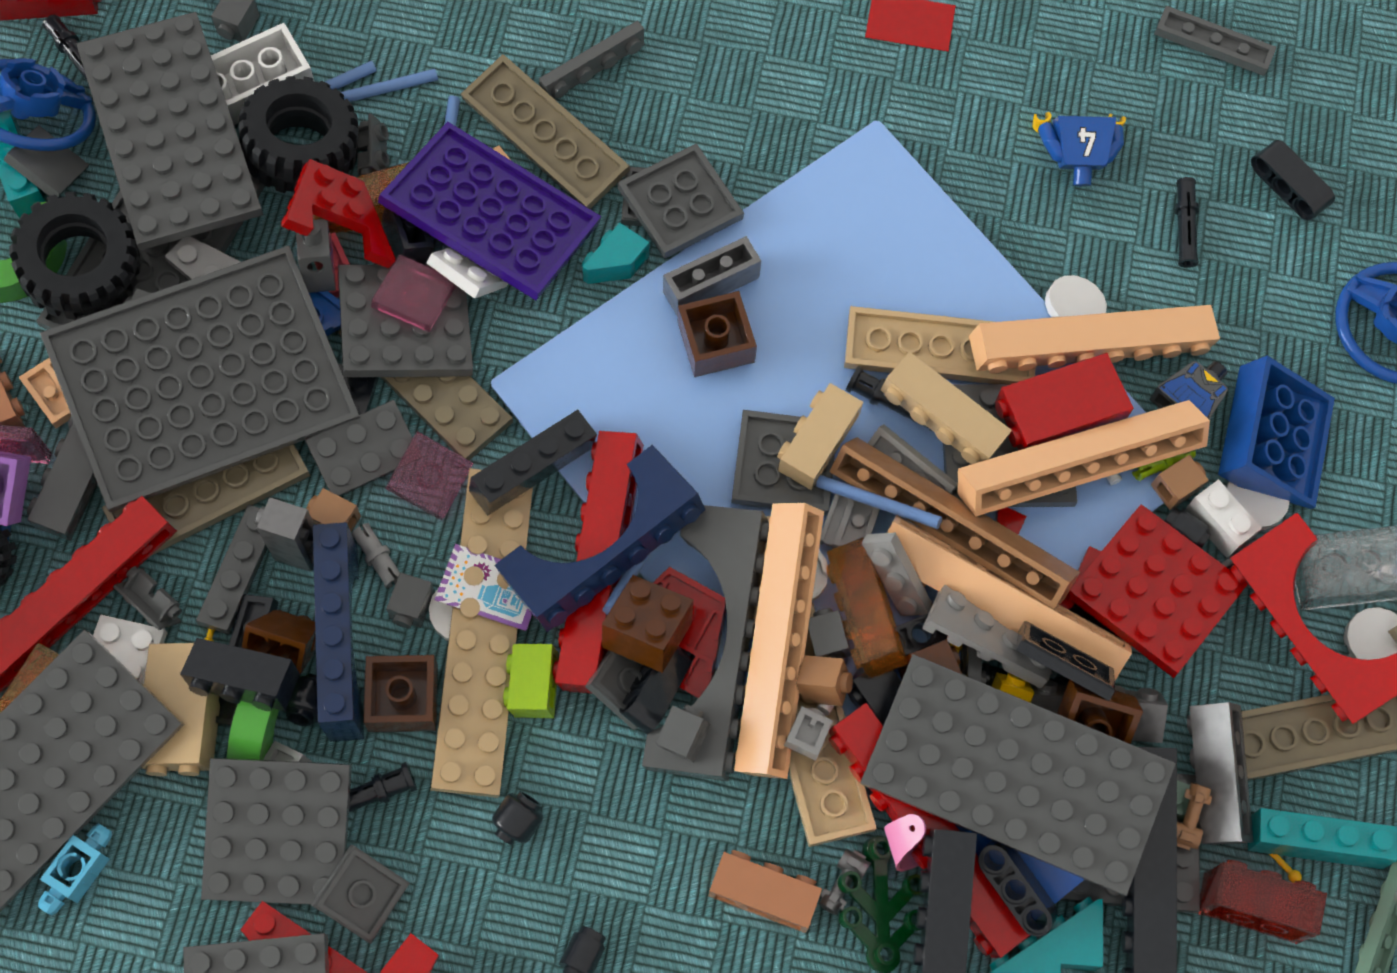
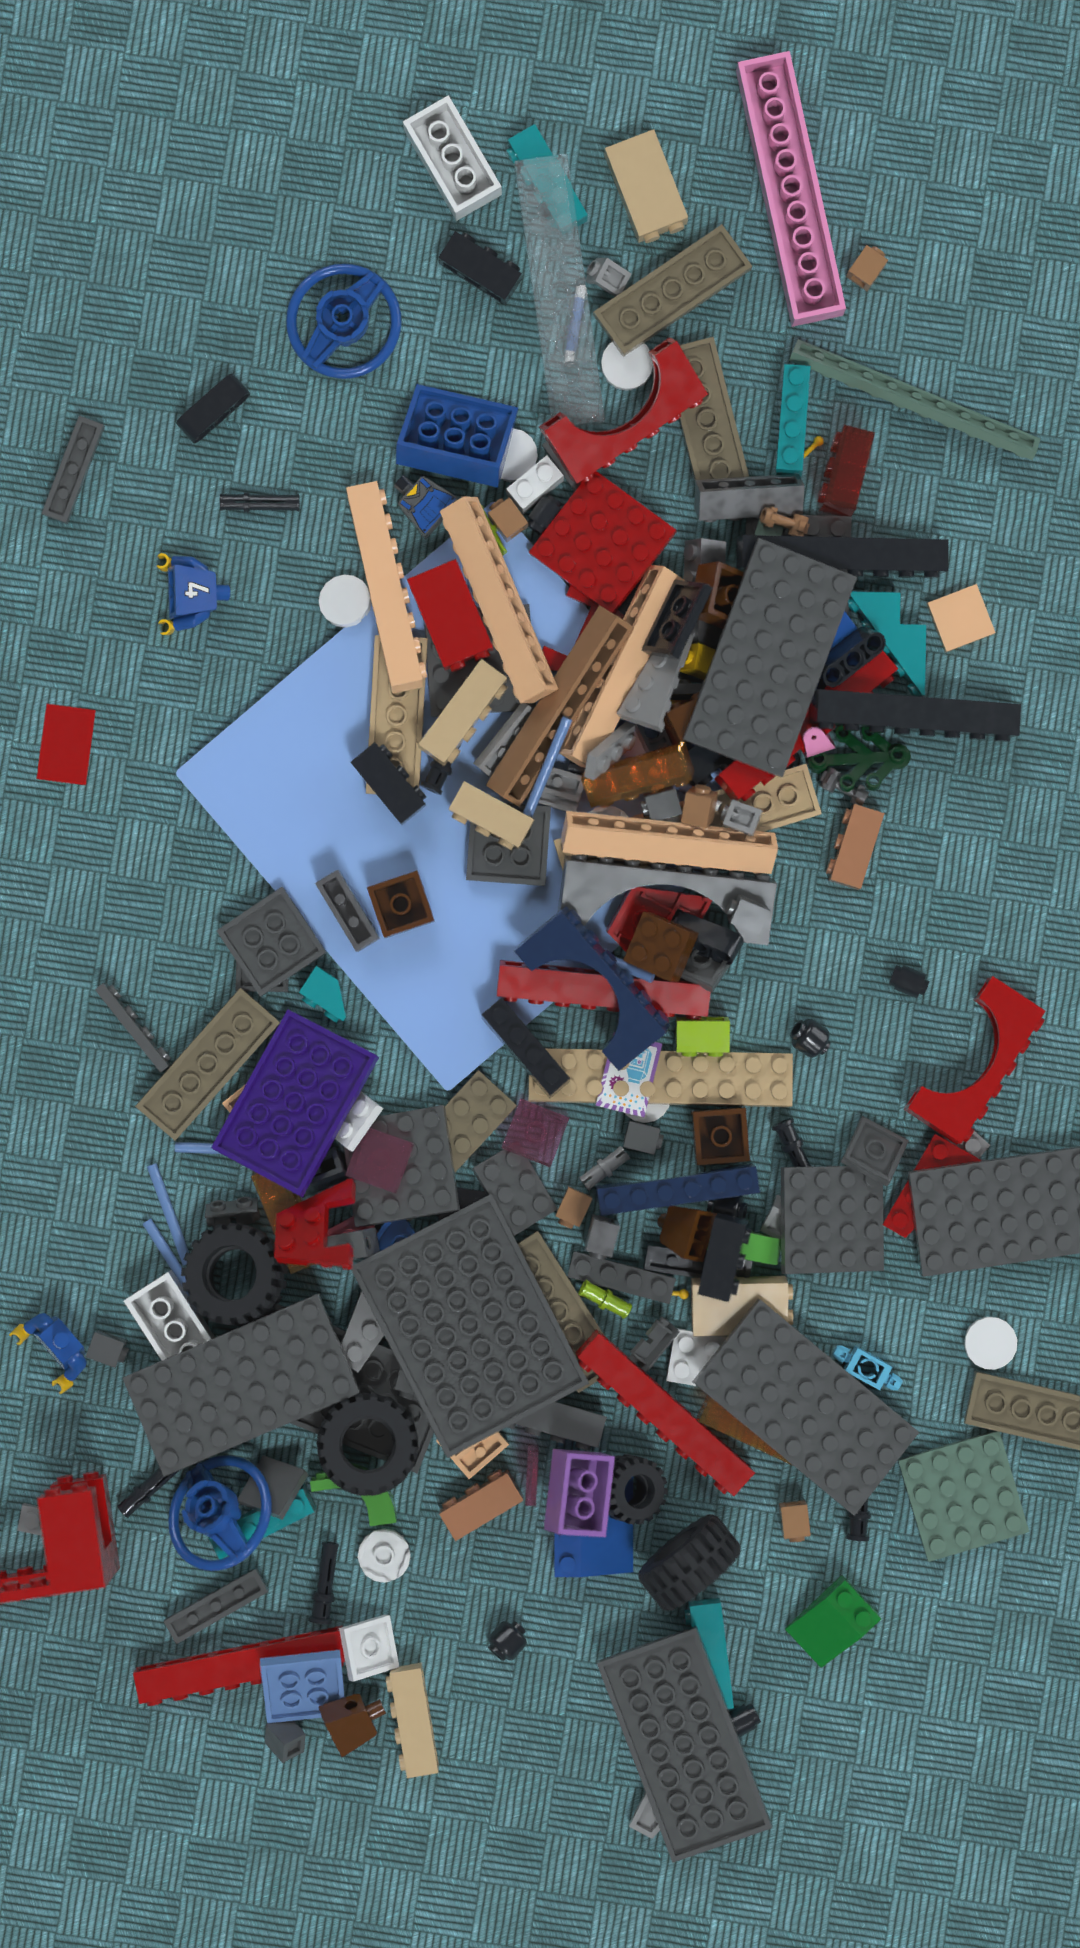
camera: 85 degrees left, 20 degrees up
(213, 546) = (605, 1299): none -> lime pin
(861, 325) = (389, 782): none -> black brick

